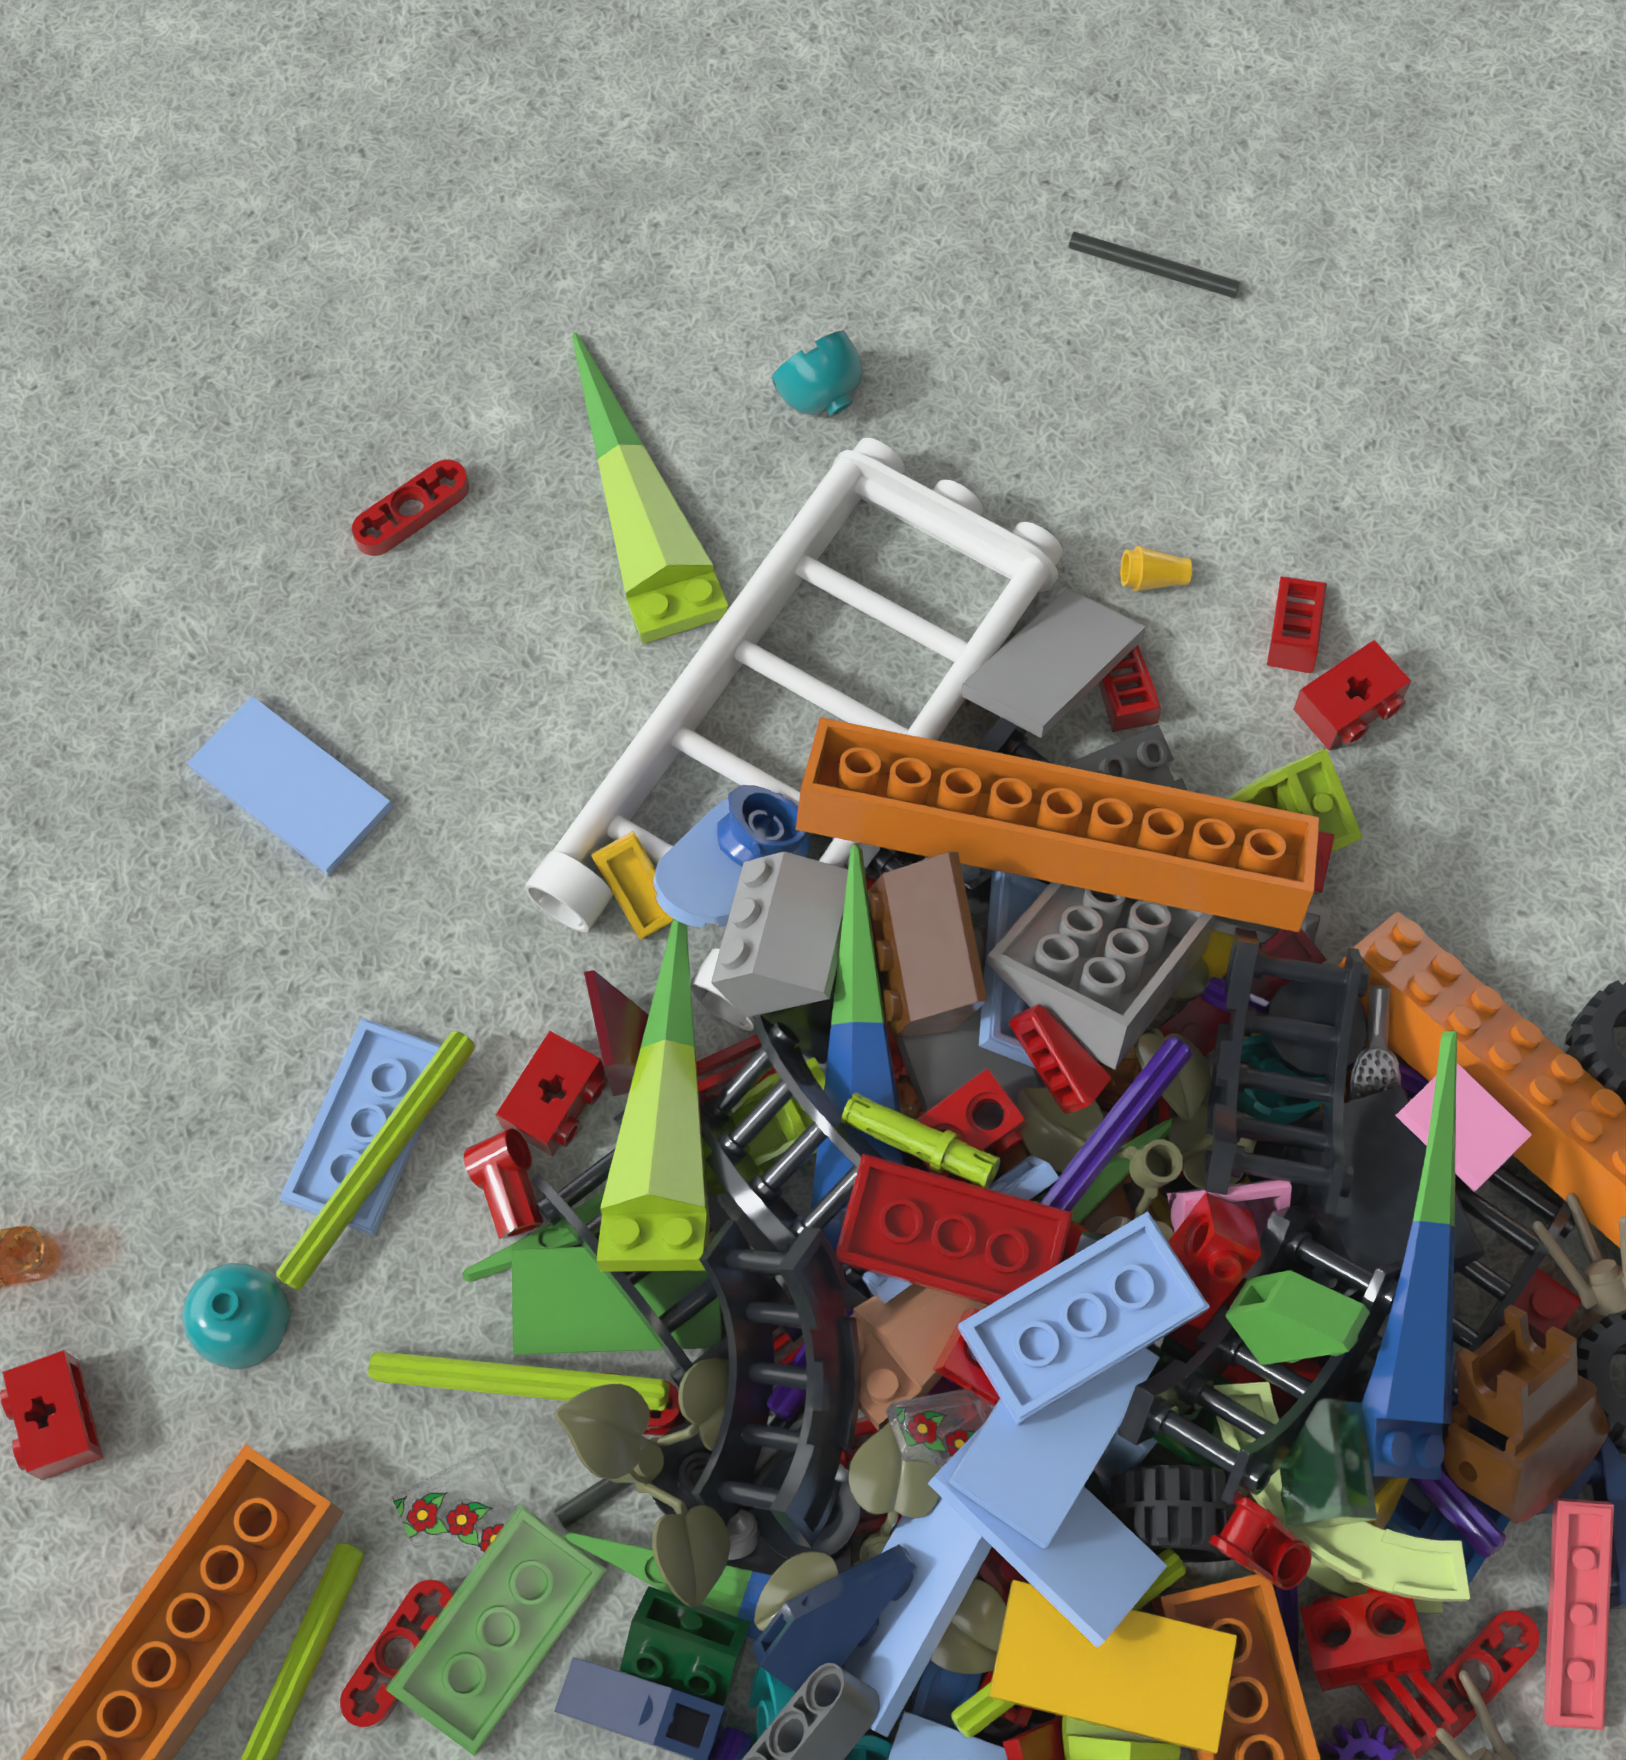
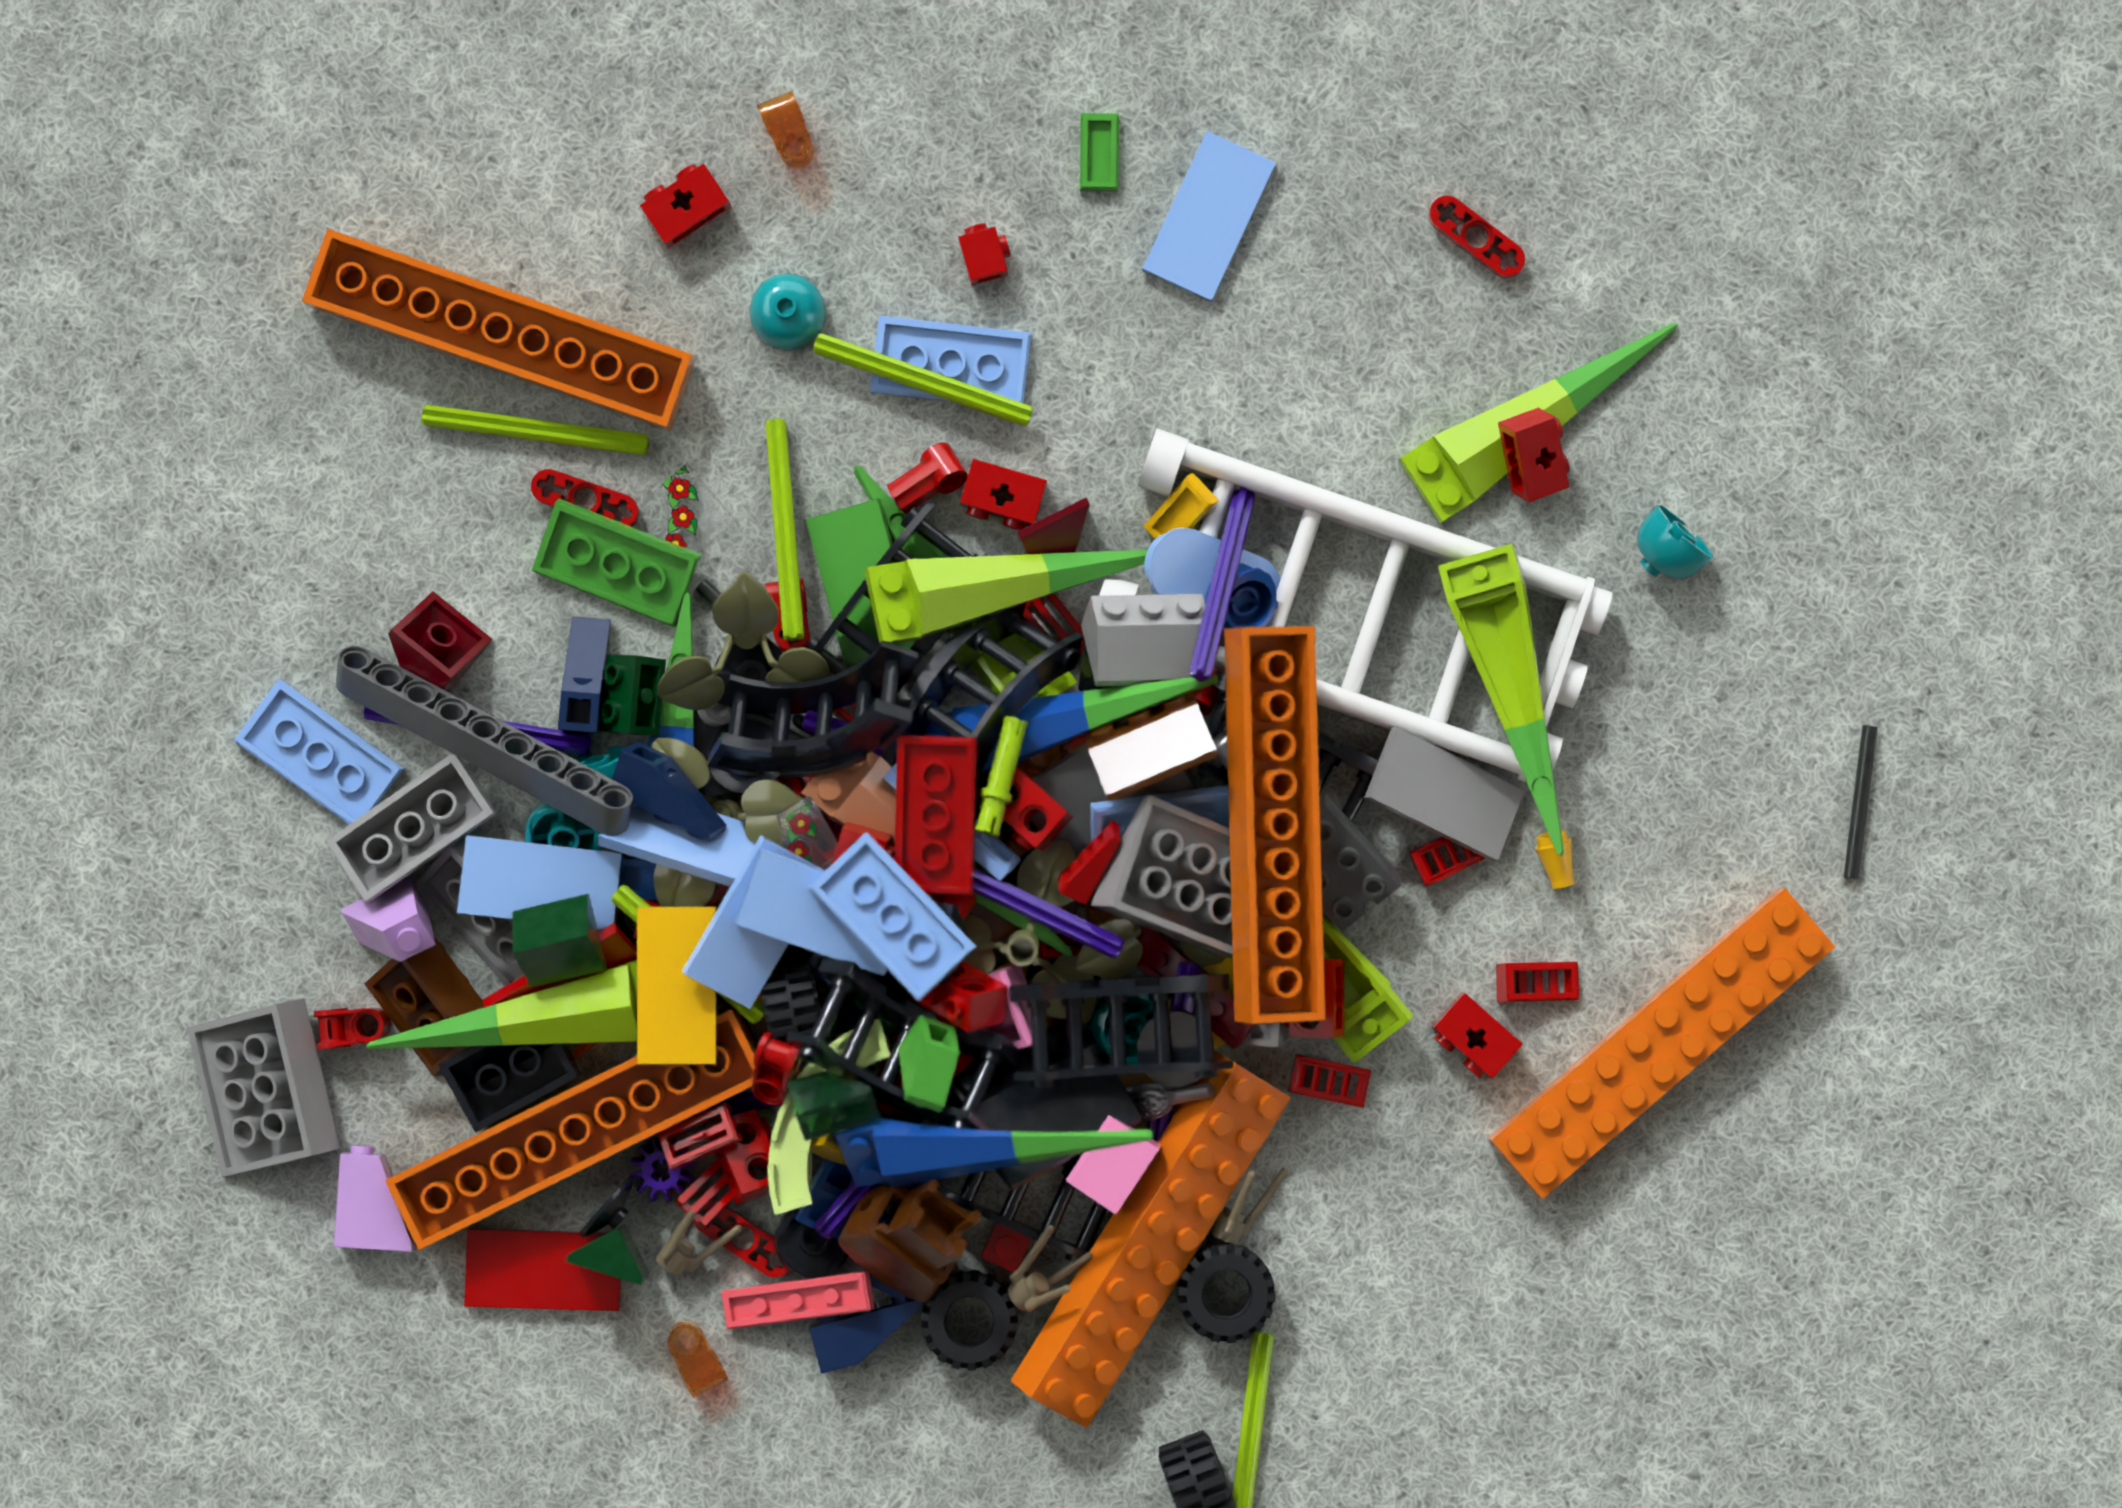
camera: 70 degrees right, 20 degrees up
(169, 891) = (1099, 151): none -> bright green tile
(245, 1050) = (984, 253): none -> red brick
(678, 487) = (1534, 454): none -> red brick
(742, 833) = (1222, 585): none -> dark purple axle
(866, 552) = (1495, 621): none -> lime plate
(1321, 1644) = (727, 1125): none -> red tile
(1363, 905) = (1298, 1074): none -> red slope
(1400, 509) = (1661, 1042): none -> orange brick
(1508, 1585) = (806, 1251): none -> black tile
(1546, 1018) = (1231, 1224): none -> dark tan plant

